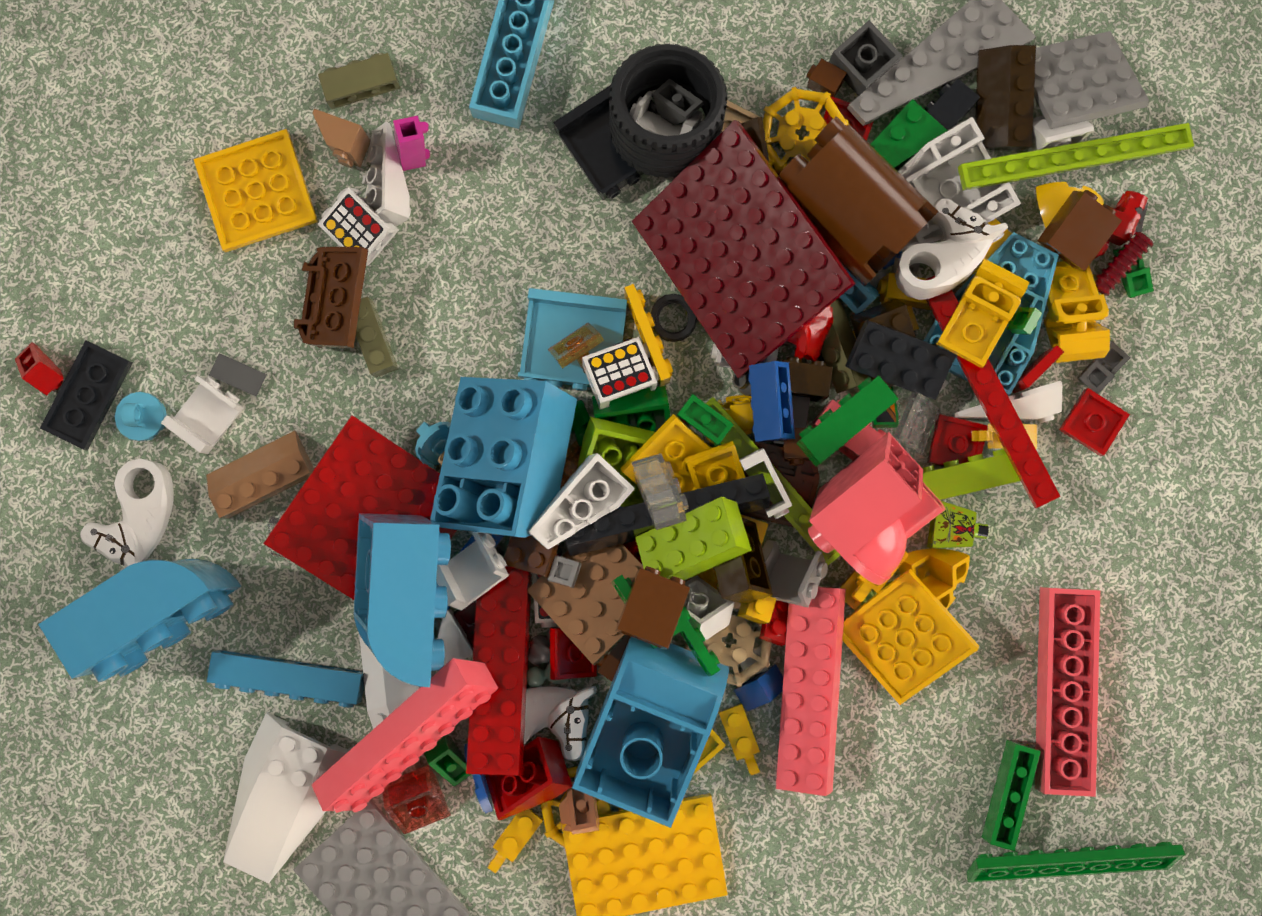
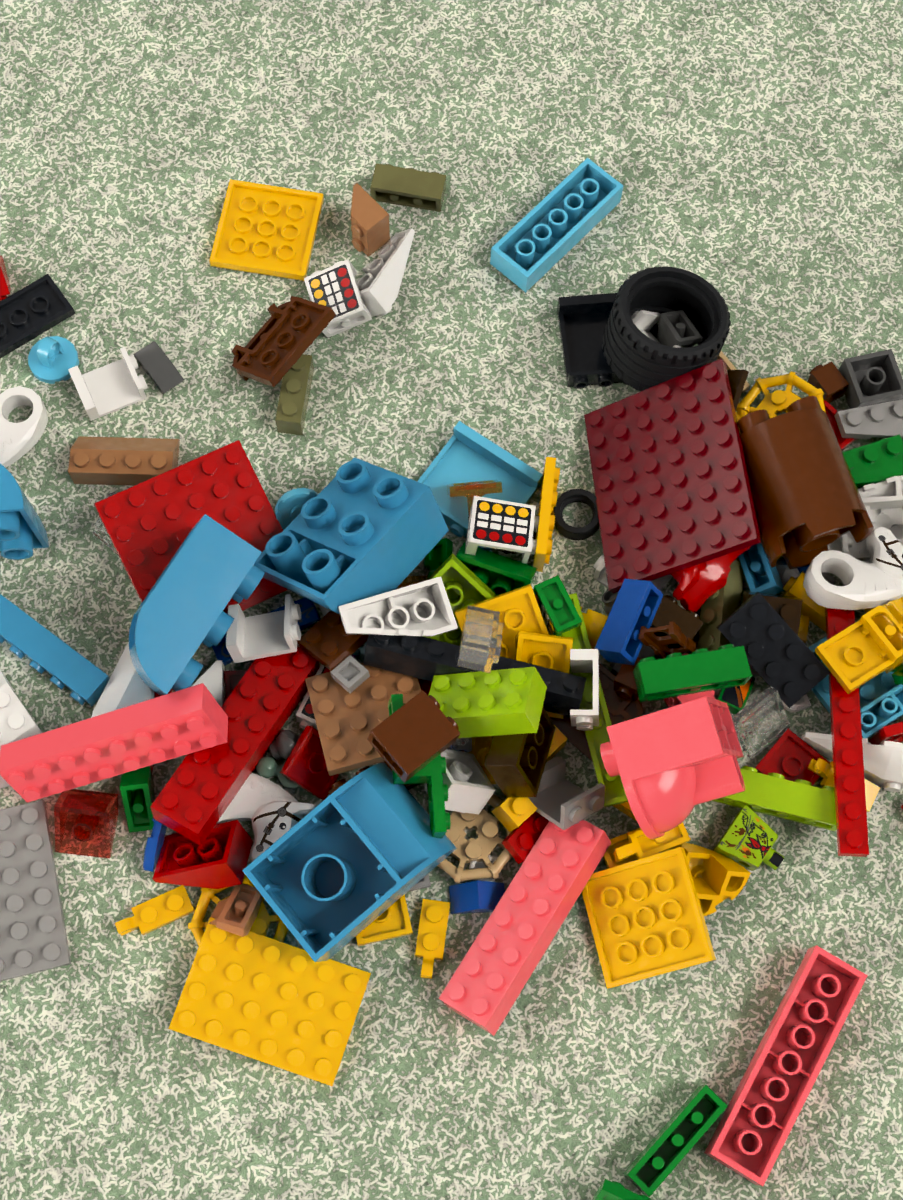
camera: 25 degrees right, 15 degrees down
(410, 142) = (423, 252): dark pink brick -> none
(814, 400) = (659, 644): none -> reddish brown piece

